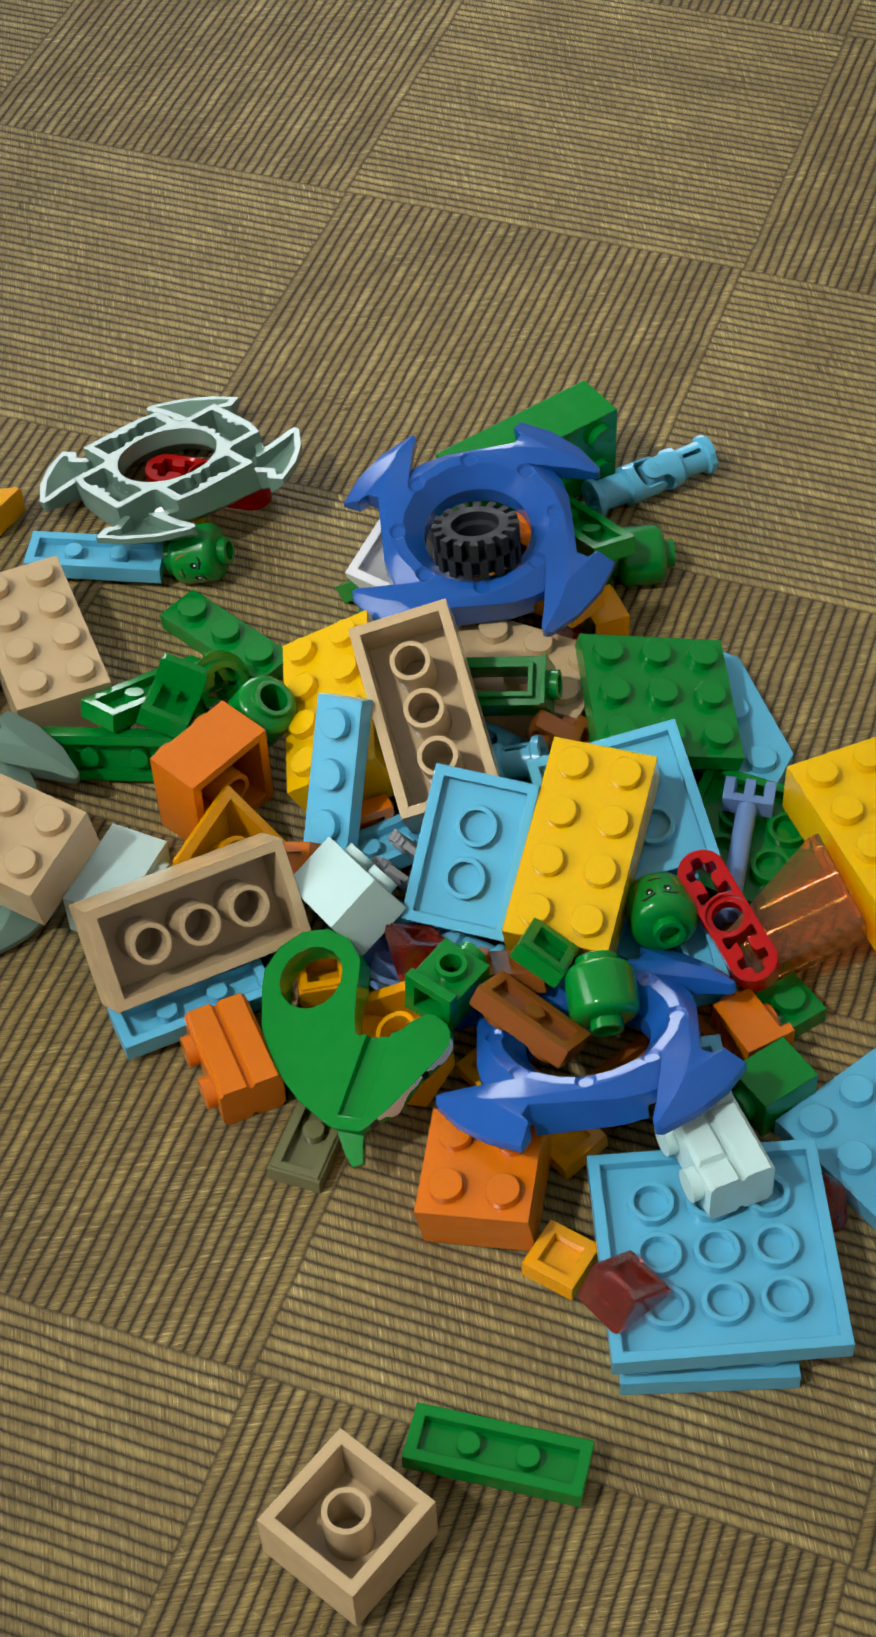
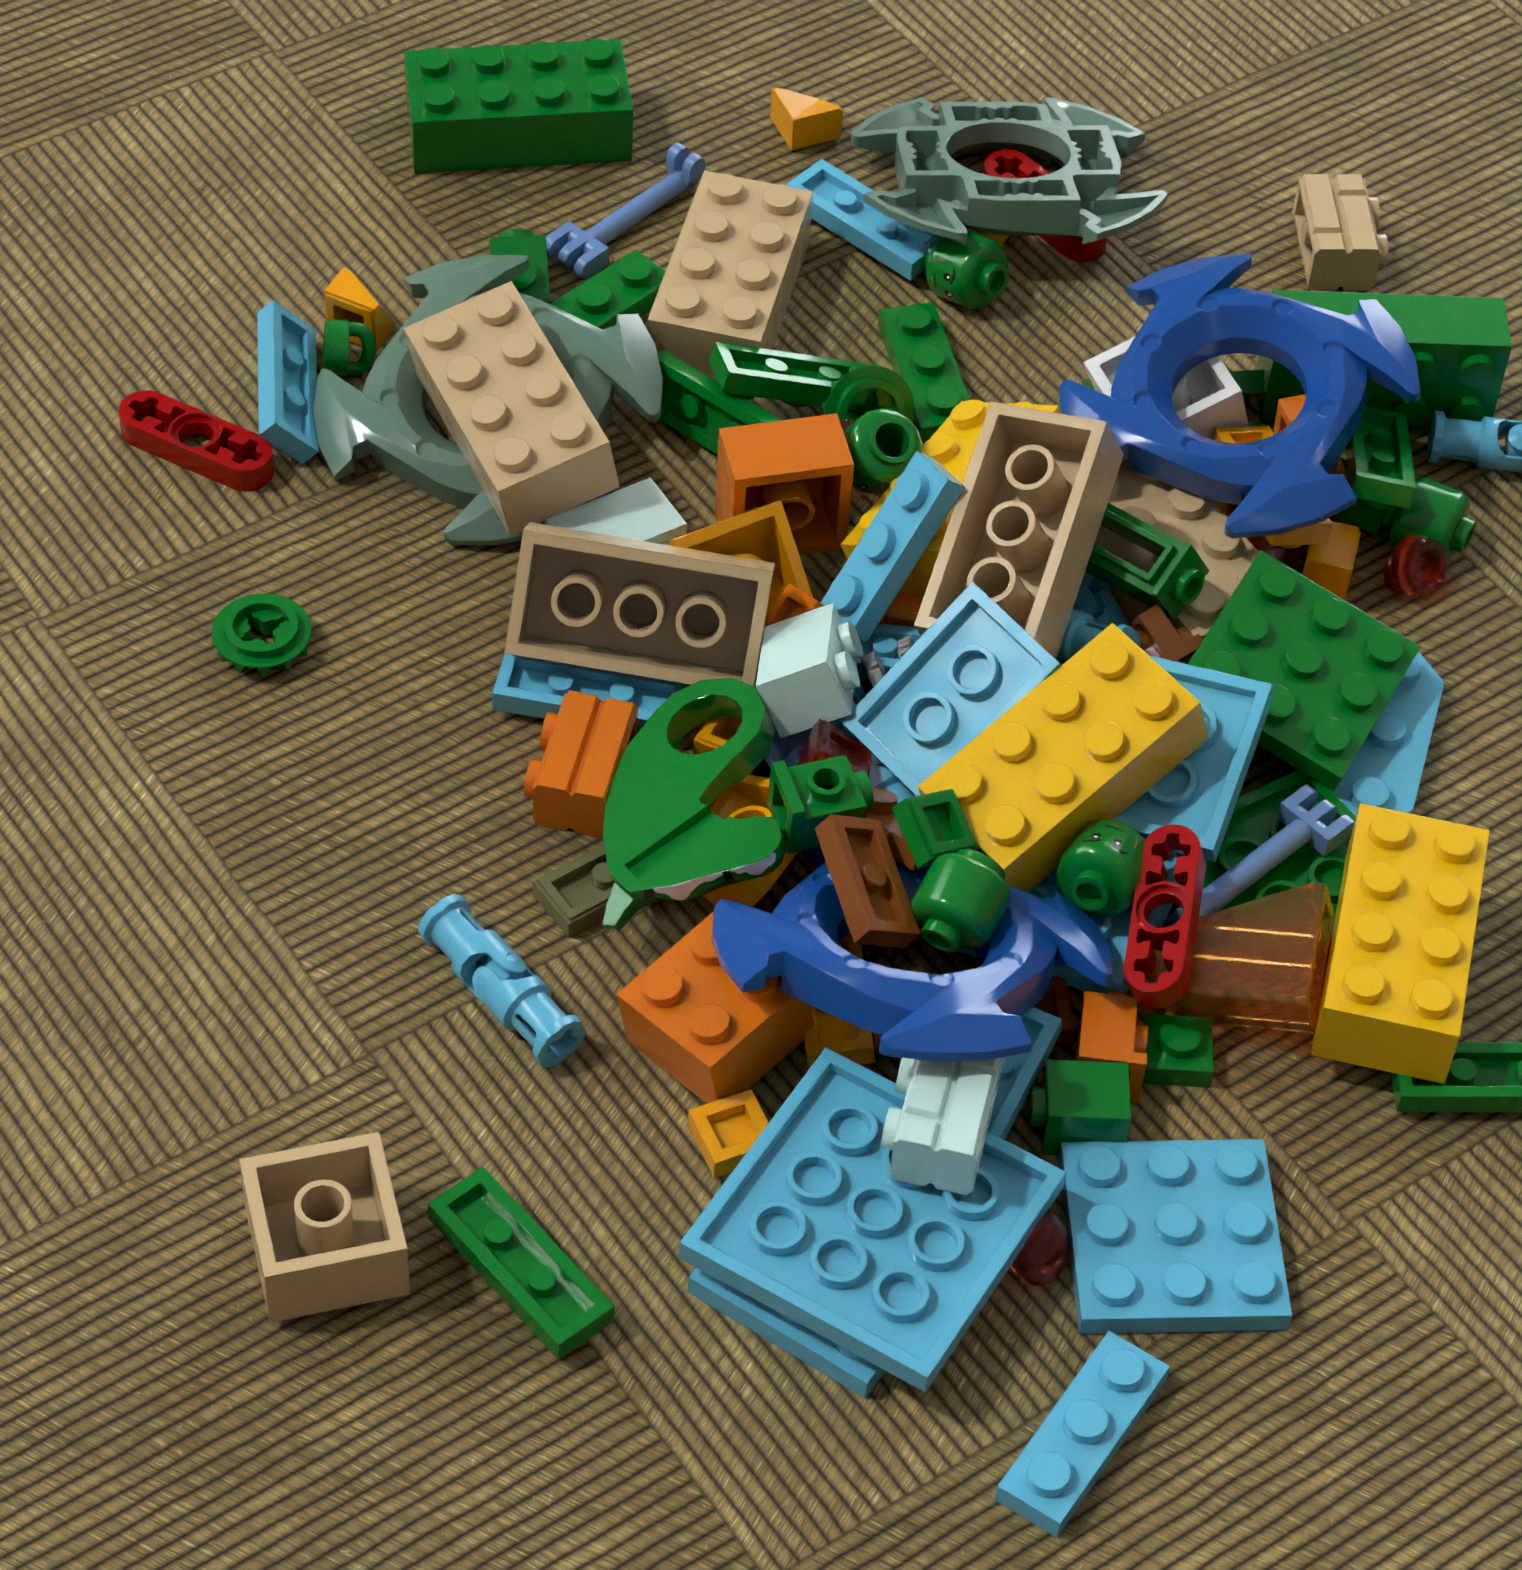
camera: 30 degrees right, 0 degrees up
(173, 696) = (803, 387): green bracket -> none
(316, 1257) = (501, 980): none -> medium azure piece
(418, 397) = (1338, 232): none -> tan brick
(476, 540) = (1220, 394): black tyre -> none
(622, 1291) = (744, 1183): clear red slope -> none
(654, 591) = (1416, 566): none -> clear red tile

